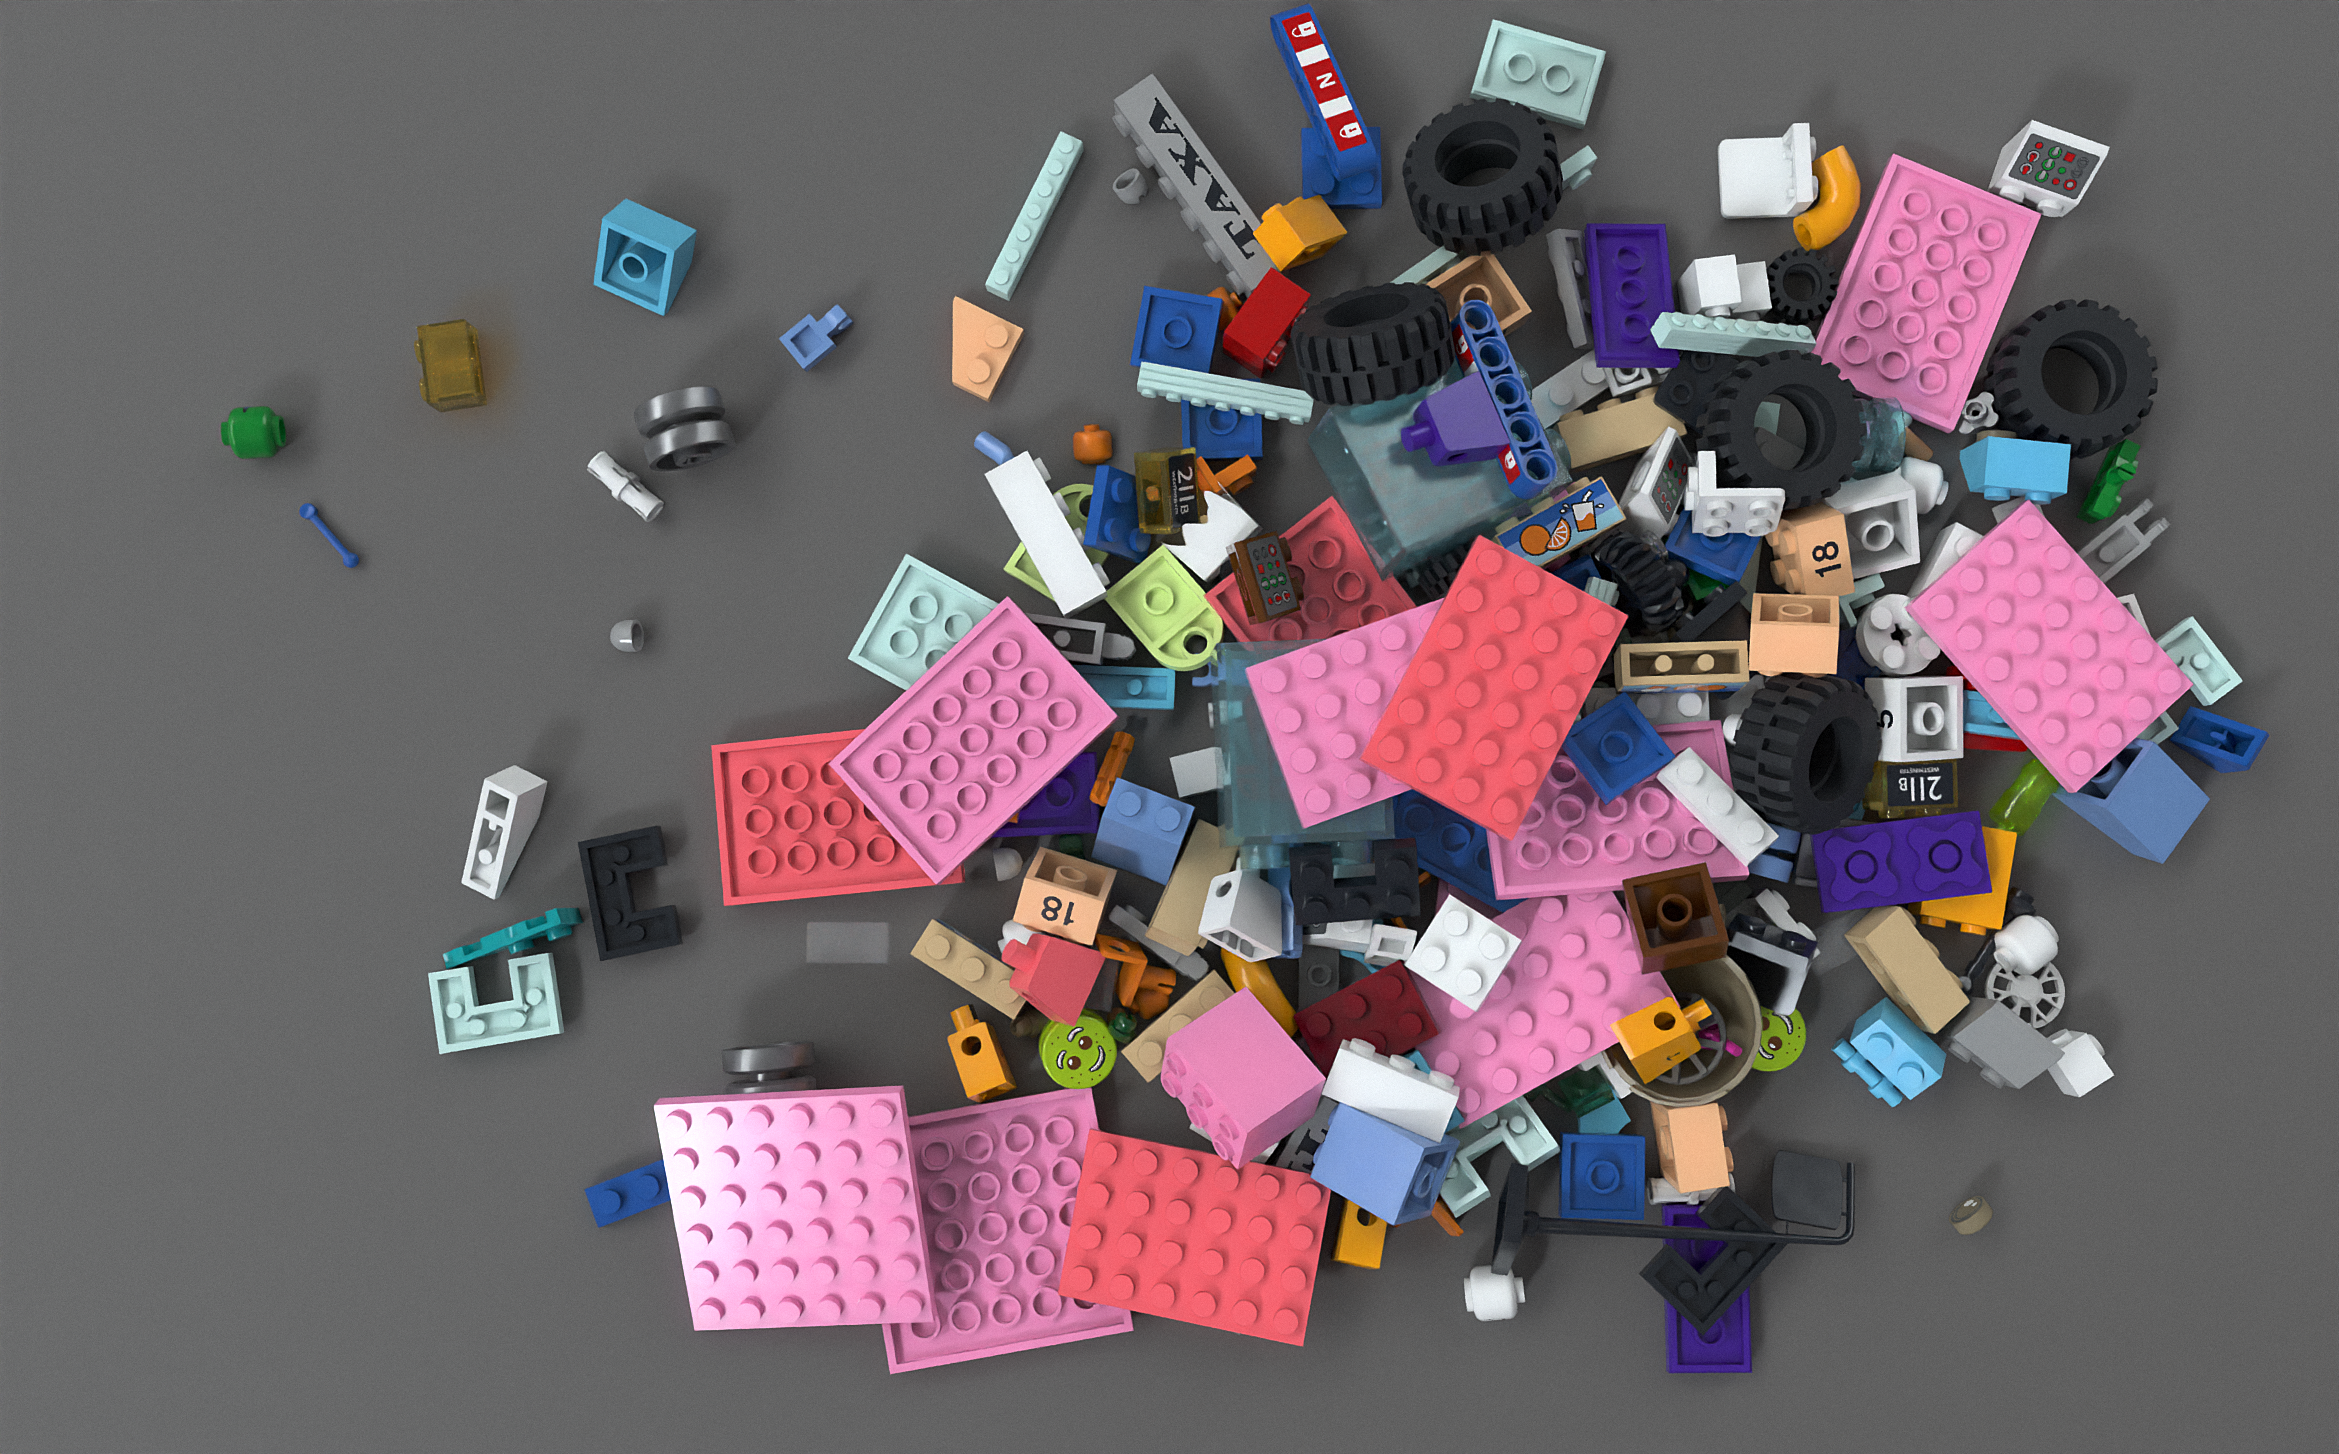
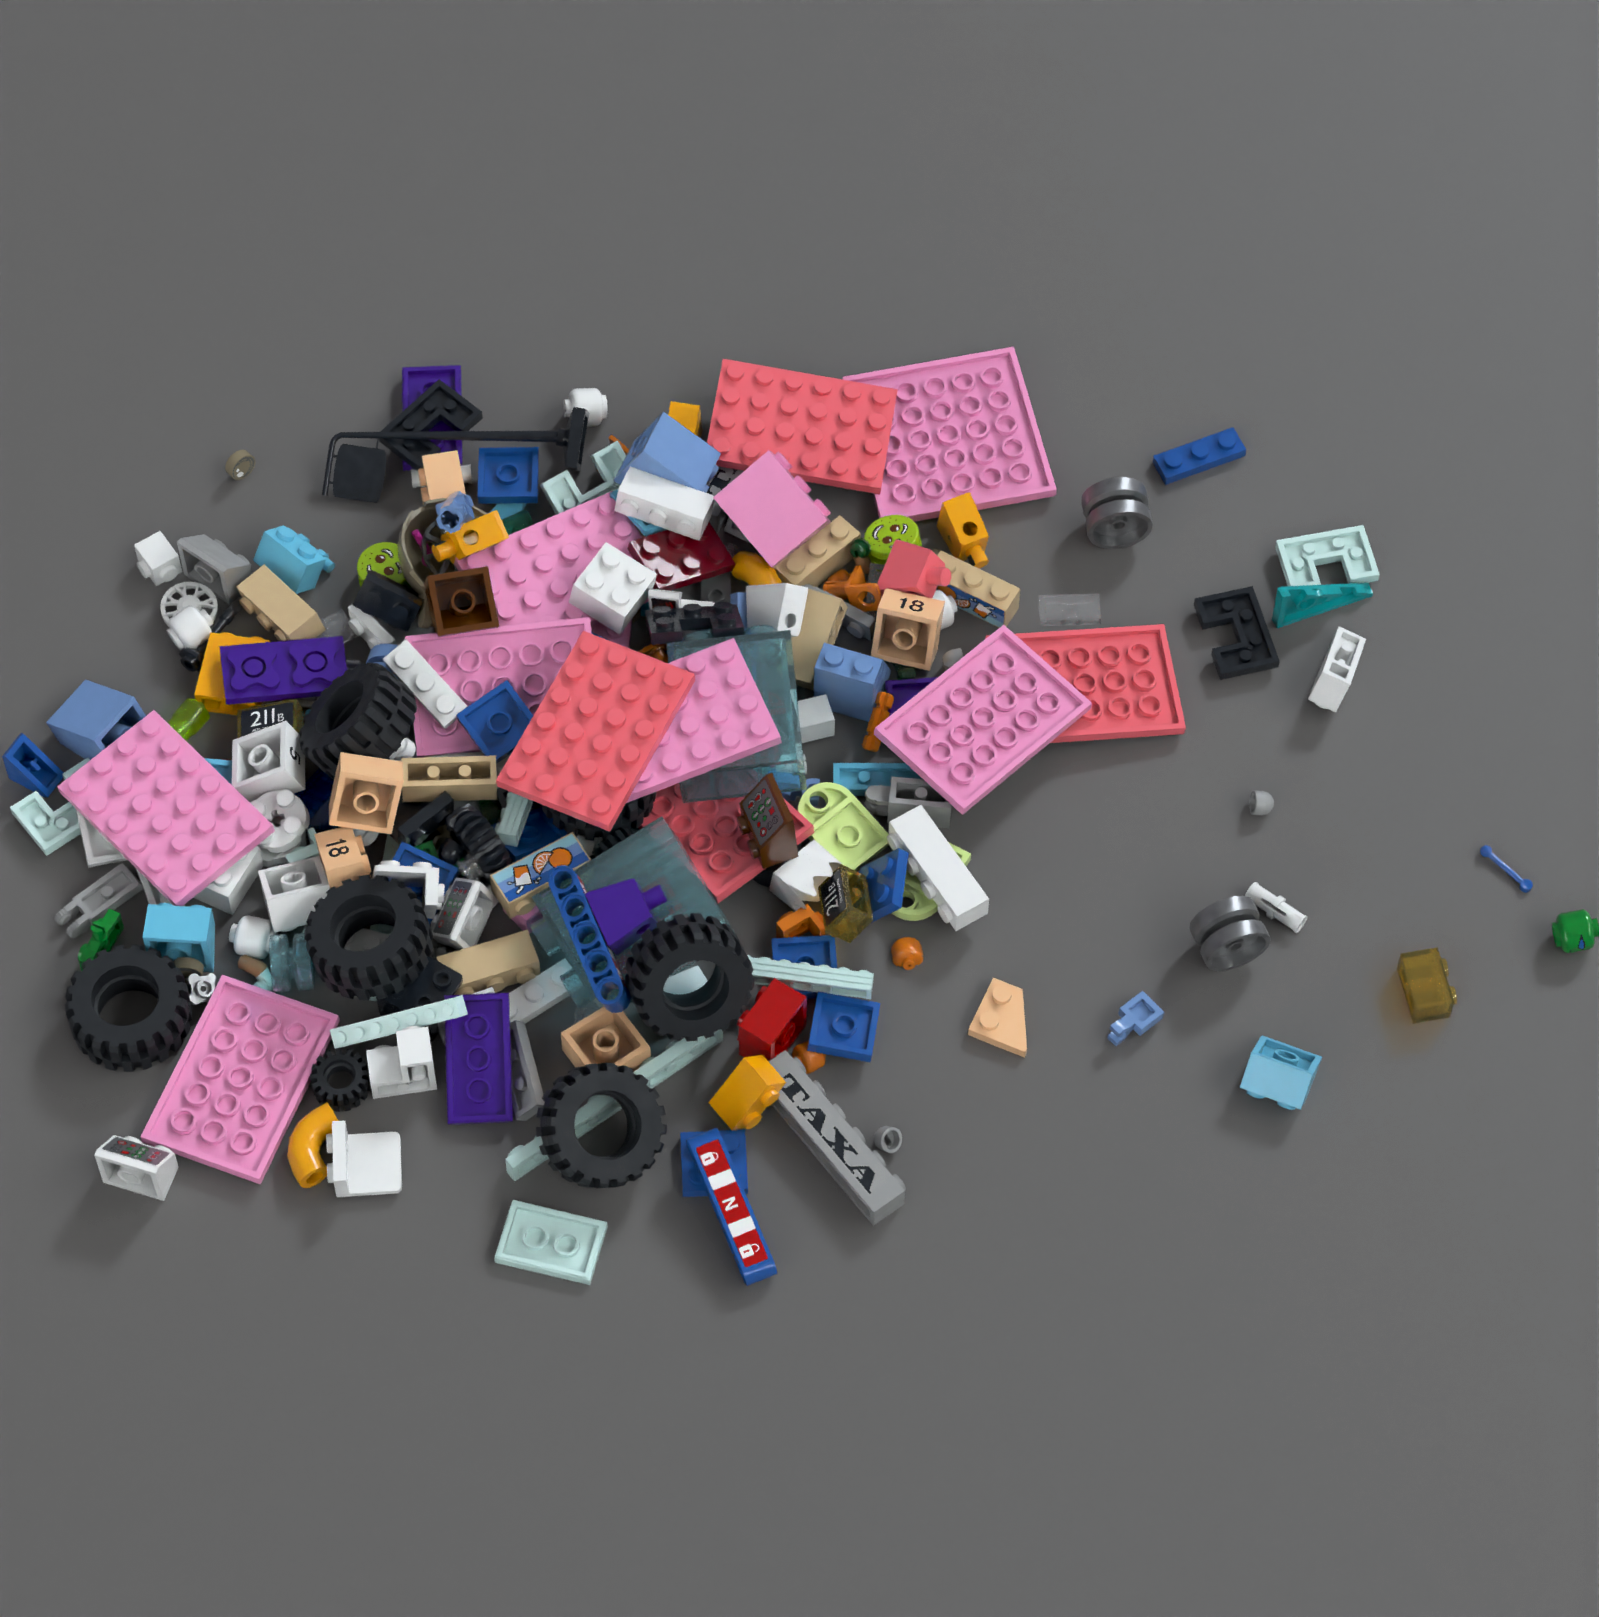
camera: 170 degrees right, 25 degrees down
(797, 1208) = (1086, 427): bright pink plate -> none
(917, 623) = (1027, 813): light aqua plate -> none
(993, 448) = (981, 938): medium blue arm -> none
(1034, 216) = (964, 1116): light aqua piece -> none
(1690, 1054) = (454, 512): none -> medium blue piece

